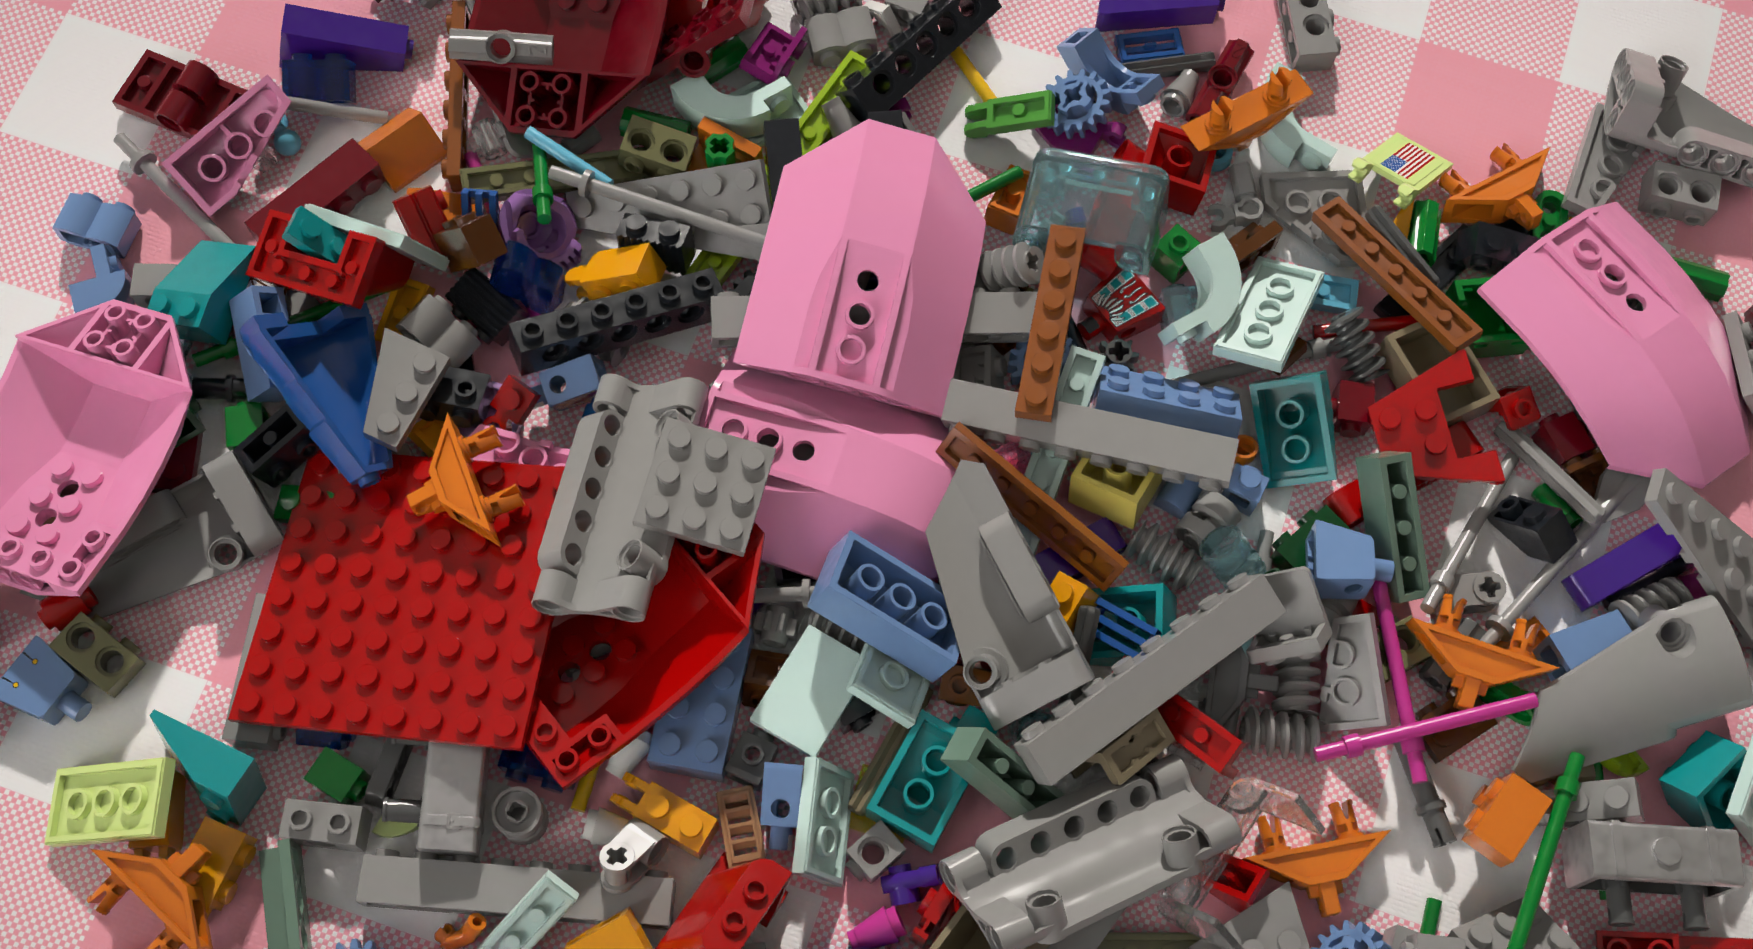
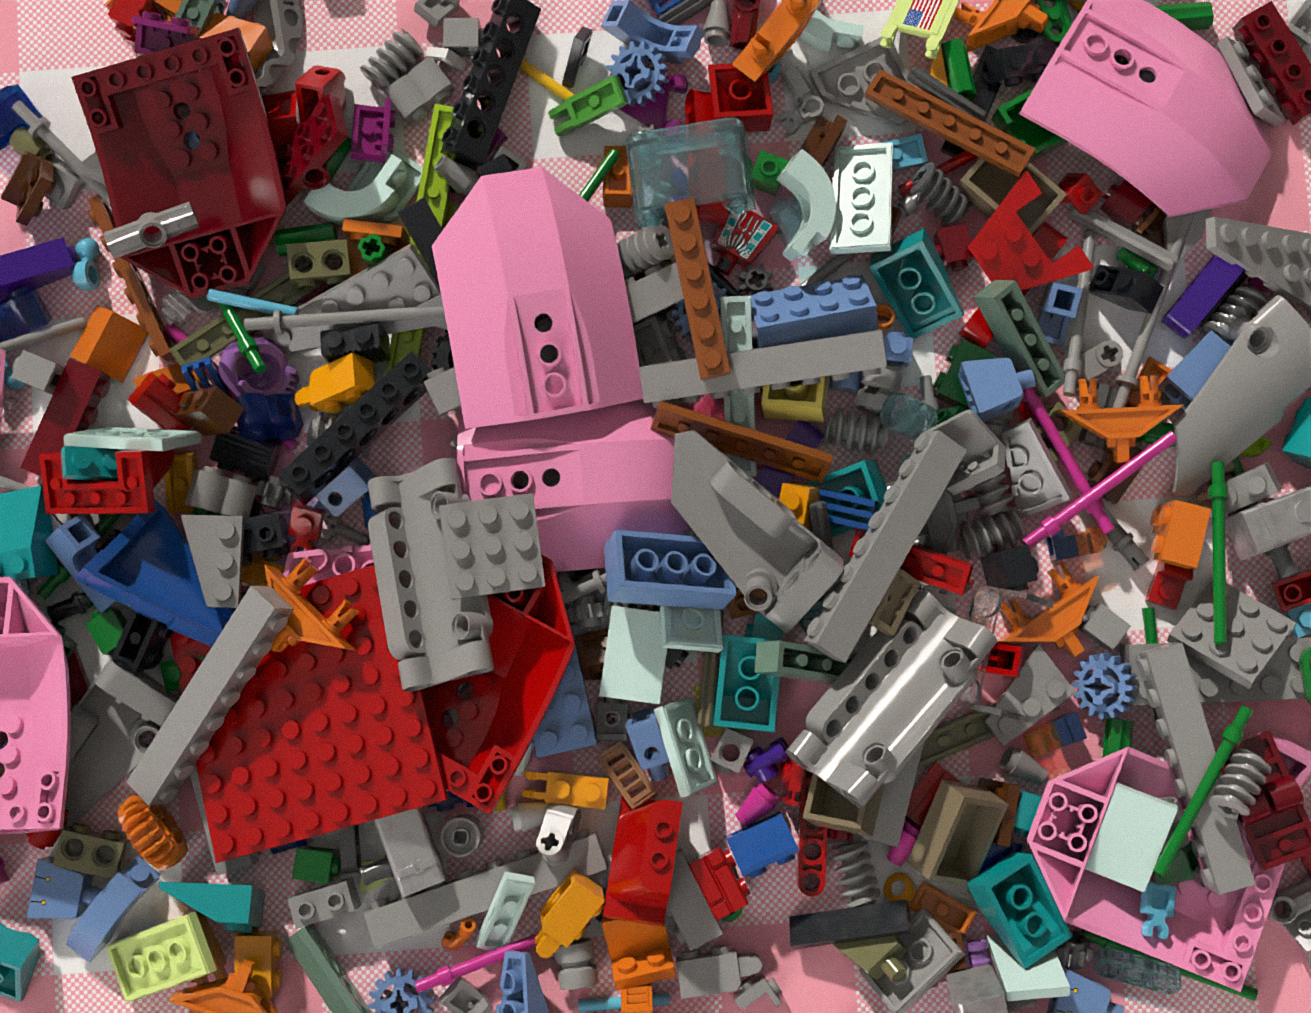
camera: 15 degrees left, 15 degrees up
(76, 724) = (109, 907): none -> medium blue arch
(177, 657) = (152, 832): none -> orange gear
(312, 136) = (37, 372): none -> light grey brick
(315, 528) = (210, 695): none -> light grey brick
(414, 70) = (86, 272): none -> medium azure plate
(495, 359) = (273, 493): none -> dark grey gear
(546, 429) = (344, 531): none -> light grey bar
(1019, 66) = (577, 56): none -> black tile
(1290, 769) = (1010, 568): none -> black brick
(1373, 787) = (1085, 543): none -> leg
(1373, 895) = (1103, 626): none -> light grey brick
(1447, 517) = (1056, 309): none -> medium blue brick
(1469, 881) = (1168, 585): none -> red slope

